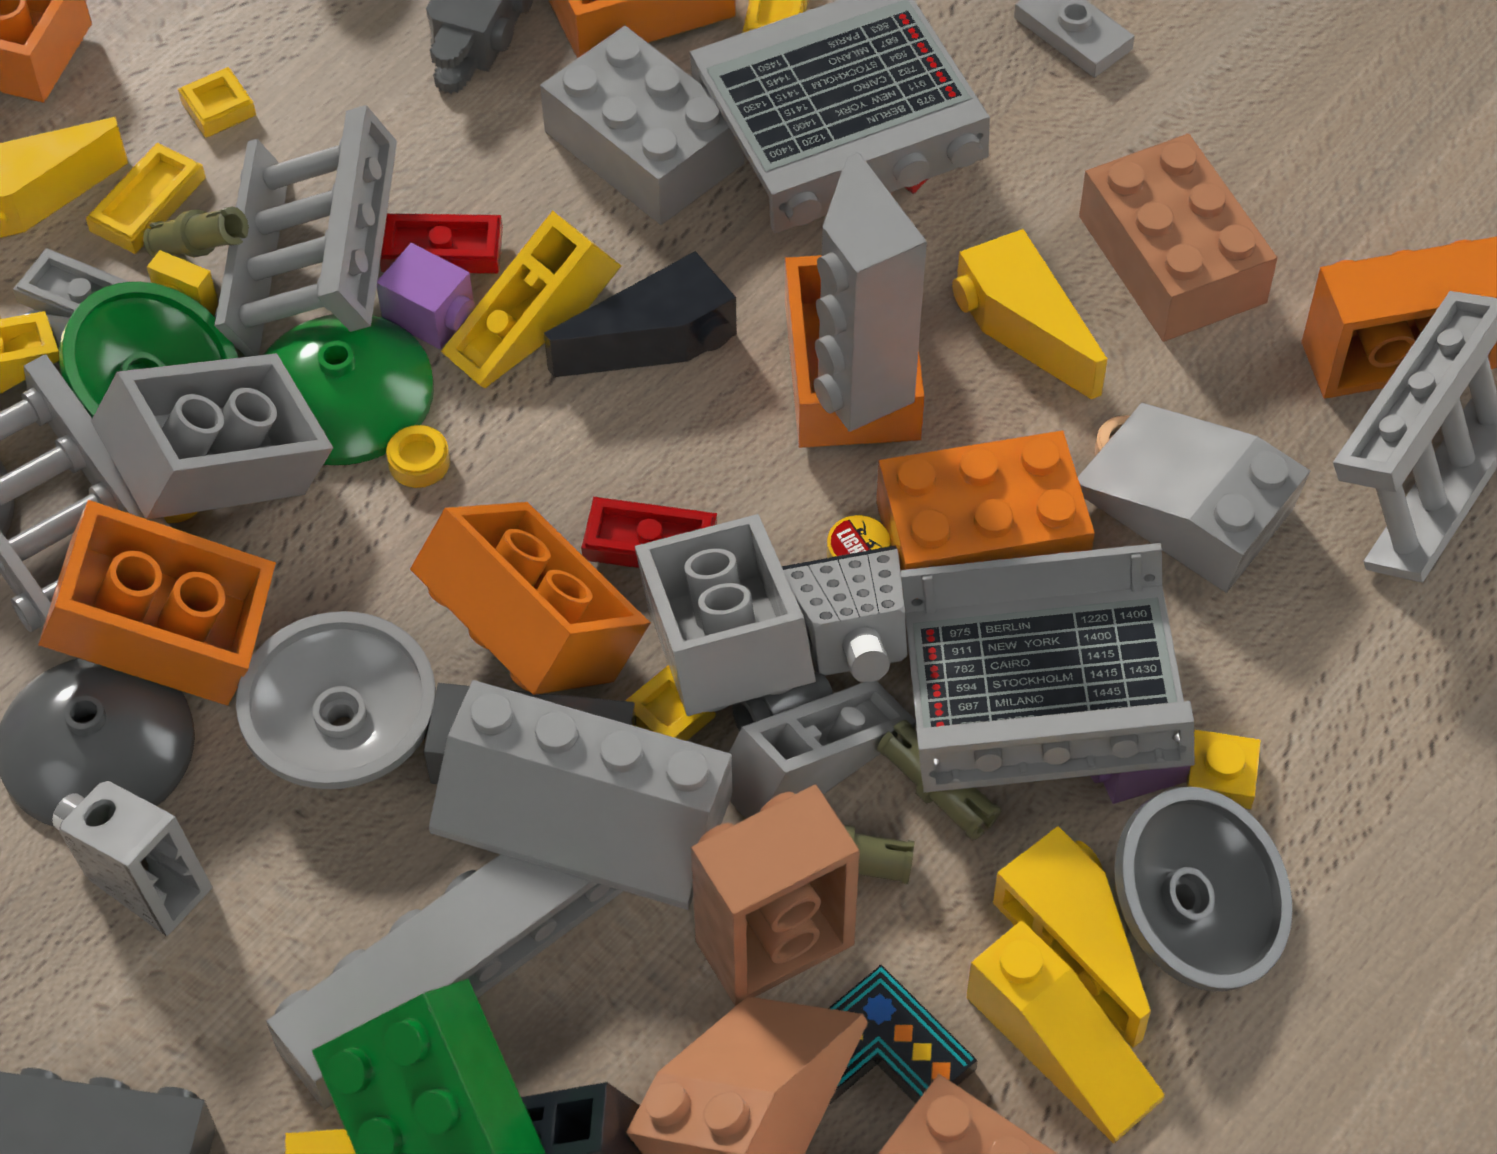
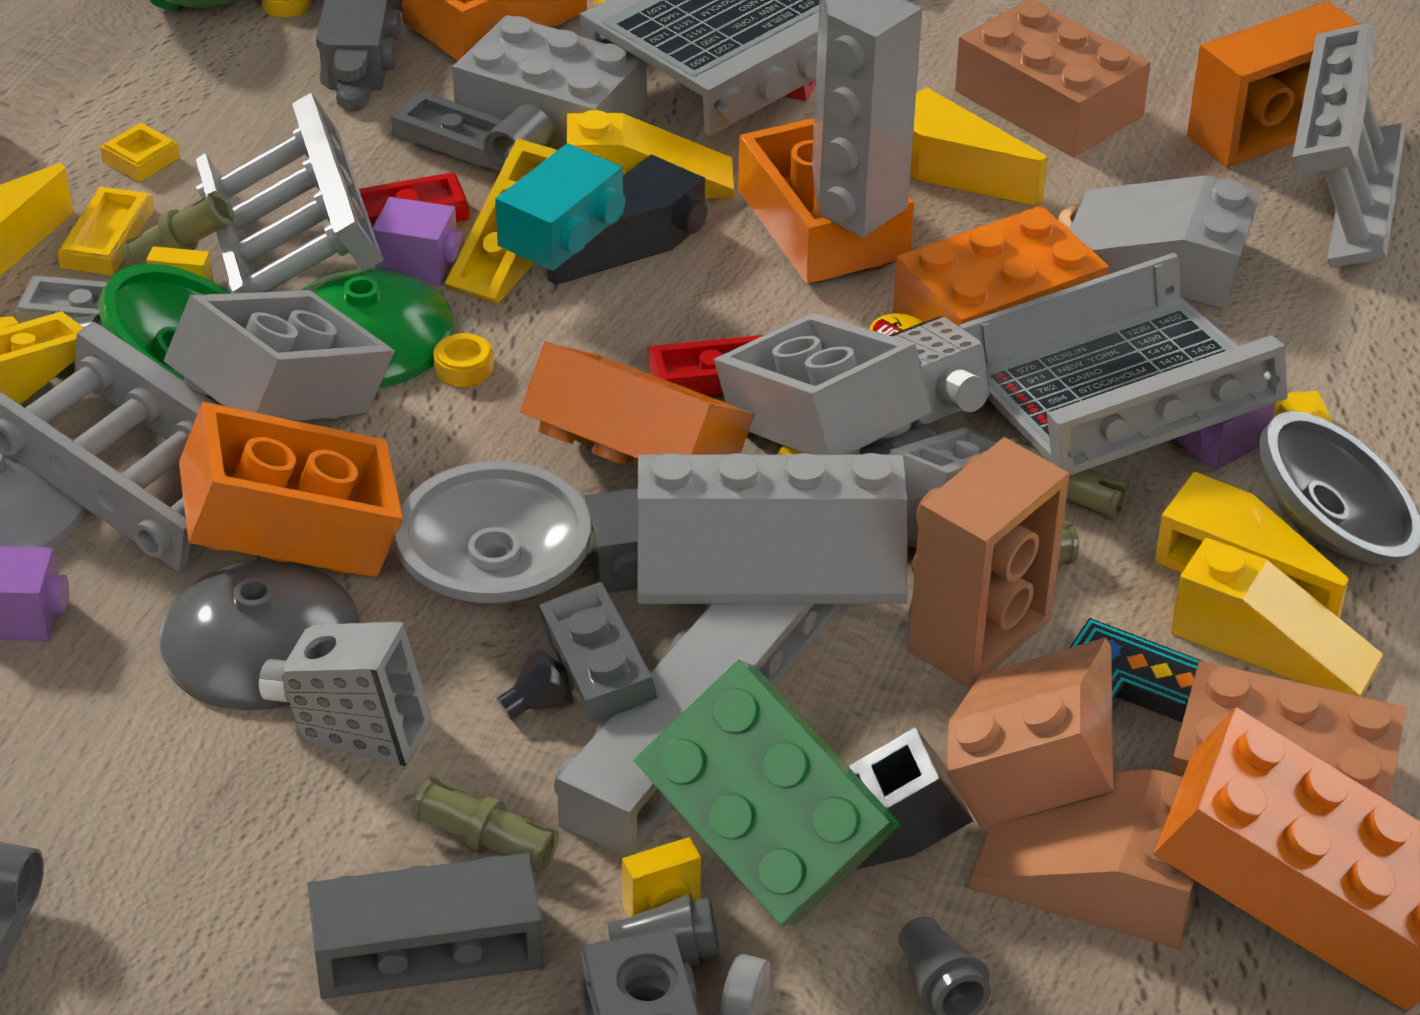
camera: 20 degrees left, 15 degrees down
(198, 1037) = (484, 823): none -> olive pin
(317, 887) = (539, 685): none -> black rock
(370, 875) = (597, 651): none -> dark grey plate
(543, 162) = (469, 132): none -> dark grey plate
(559, 311) = (559, 206): none -> teal brick
(664, 224) = (630, 141): none -> yellow slope

